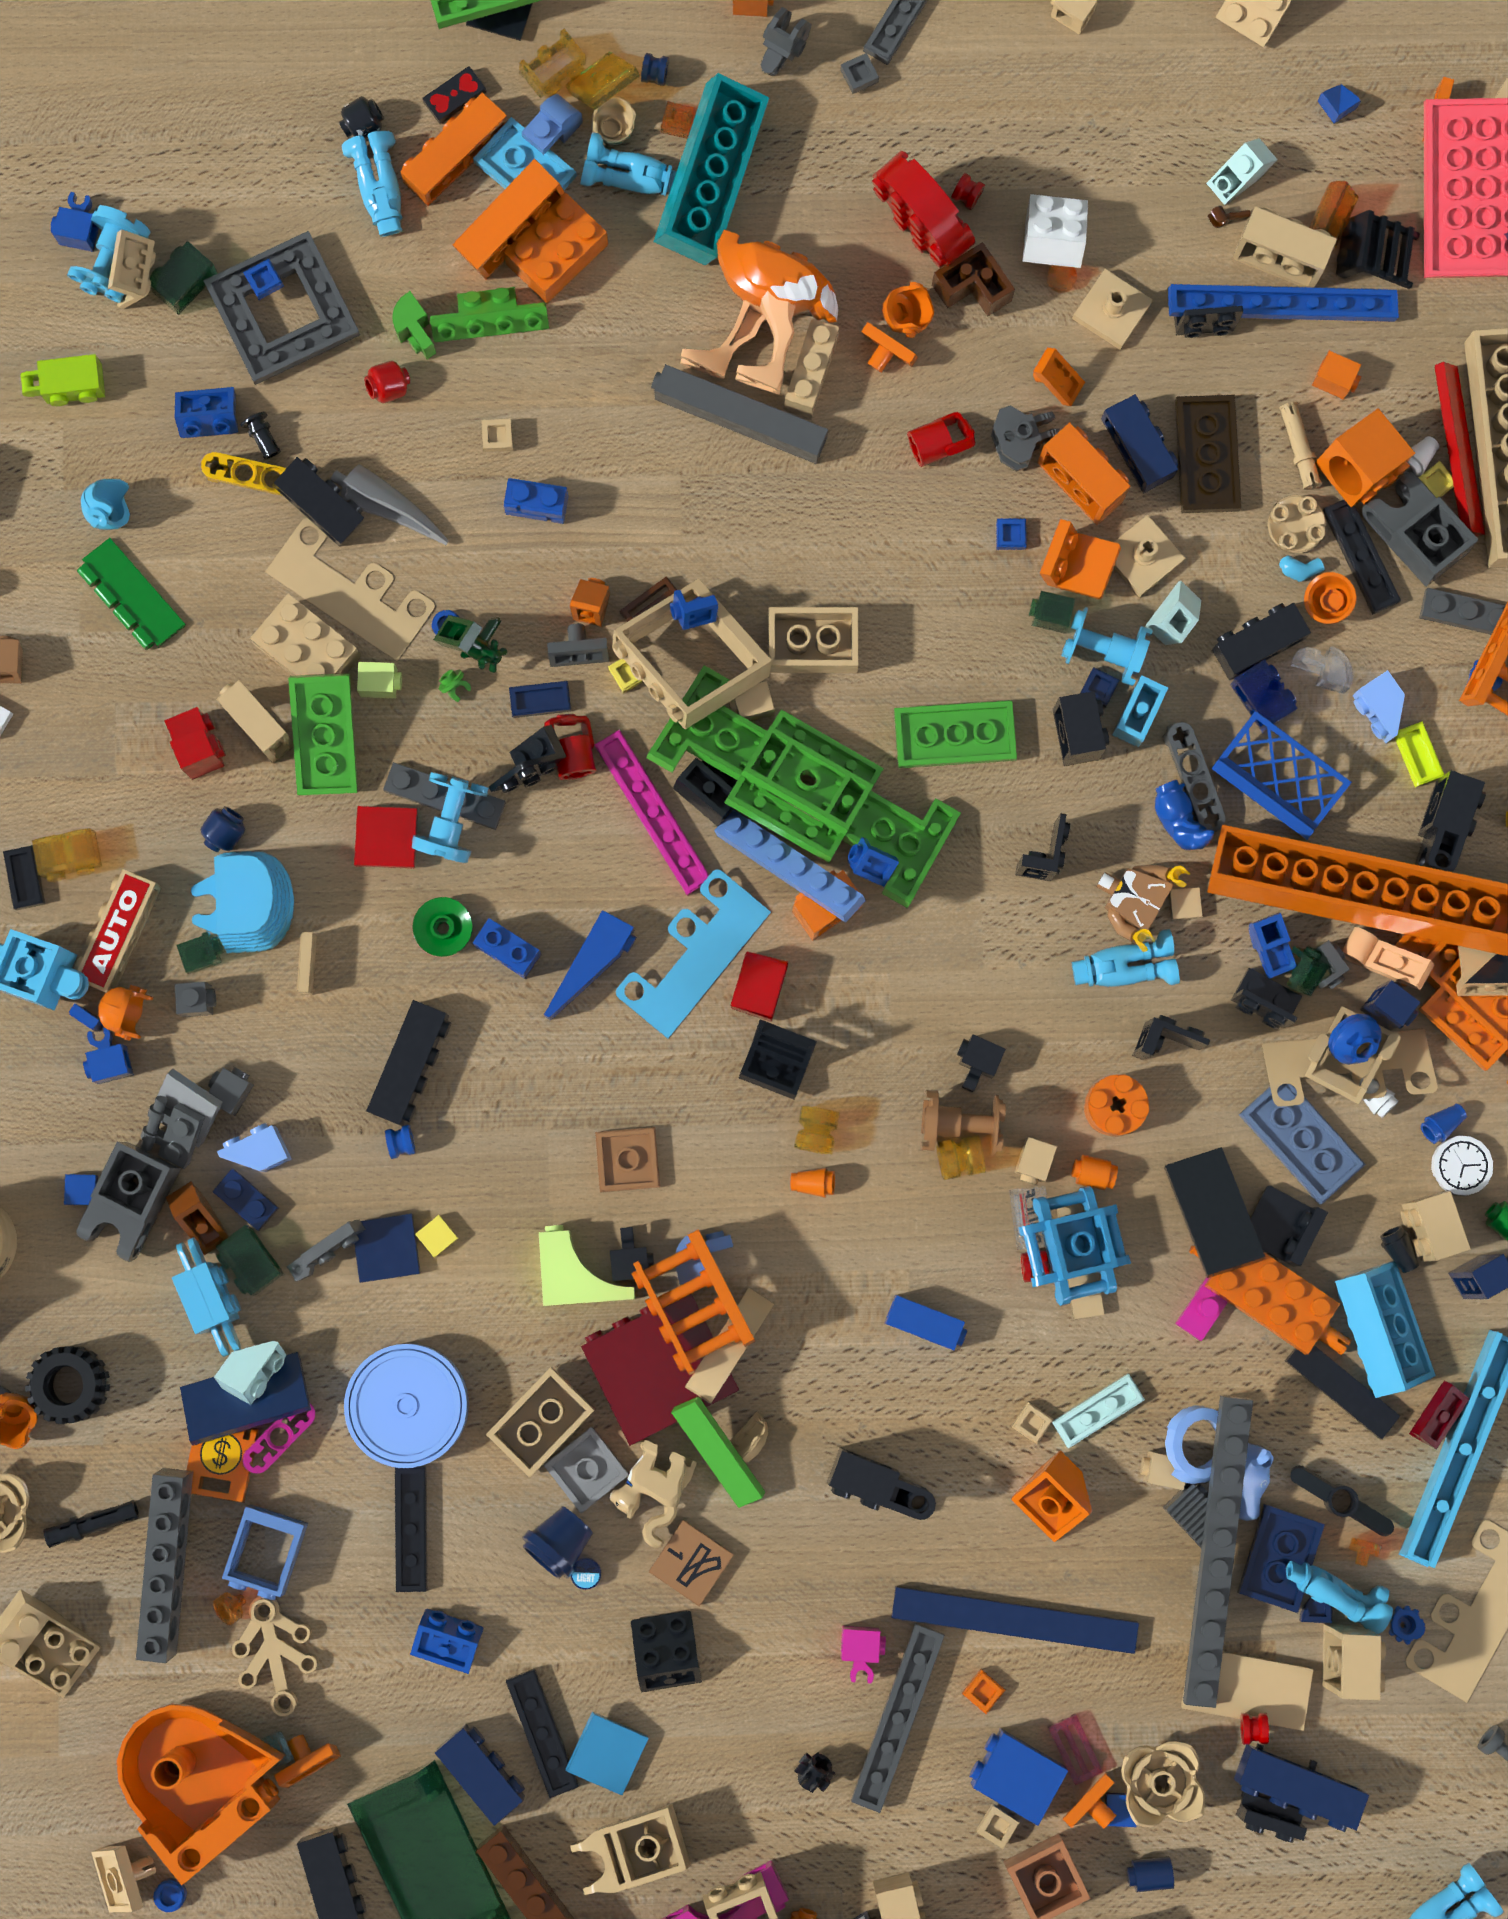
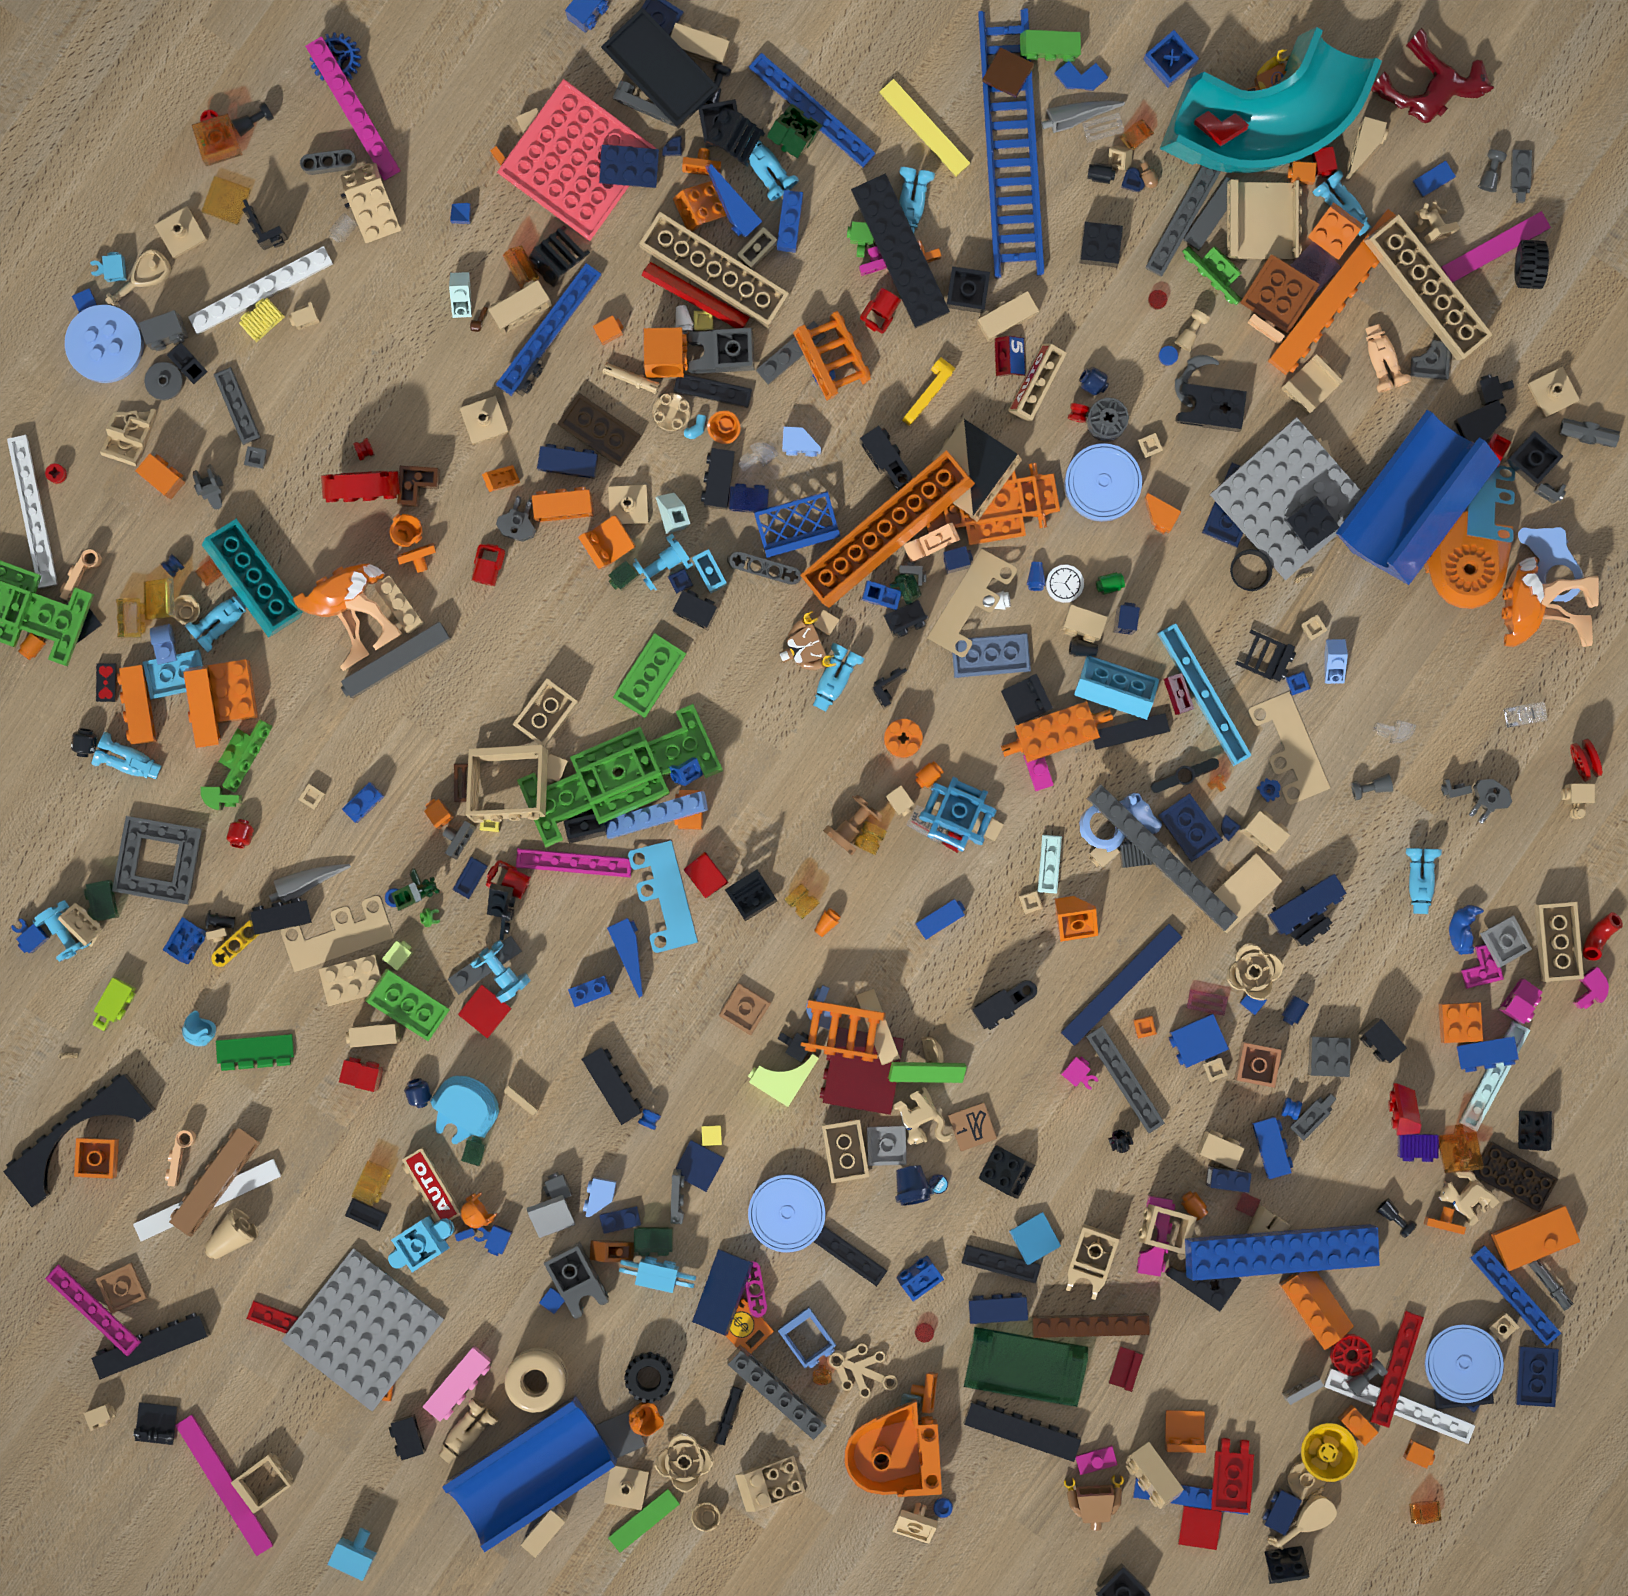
camera: 45 degrees left, 5 degrees up
(181, 1133) = (563, 1229): dark grey plate -> none
(194, 999) = (497, 1171): dark grey brick -> none
(242, 444) = (217, 935): none -> tan plate
(249, 1370) = (710, 1280): light aqua slope -> none
(263, 279) = (136, 859): blue tile -> none
(381, 1699) = (924, 1332): none -> clear red tile
(433, 914) = (546, 1023): green dish -> none
(695, 612) = (488, 765): blue bracket -> none
(979, 1057) = (827, 789): black brick -> none
(1011, 534) = (565, 565): blue tile -> none
(1036, 865) = (748, 686): black bracket -> none
(1055, 231) = (421, 420): white brick -> none
(1061, 278) = (446, 438): clear orange tile -> none
(1093, 1805) = (1239, 1014): orange tile -> none
(1176, 816) = (774, 592): blue animal -> none
(1214, 1212) = (994, 729): black tile -> none
(1254, 1728) = (1262, 905): red wheel -> none
(1326, 1588) = (1223, 815): medium azure piece -> none
(1337, 1083) = (957, 583): tan piece -> none
(1353, 1033) = (956, 592): blue piece -> none
(1419, 754) = (839, 441): neon yellow tile -> none

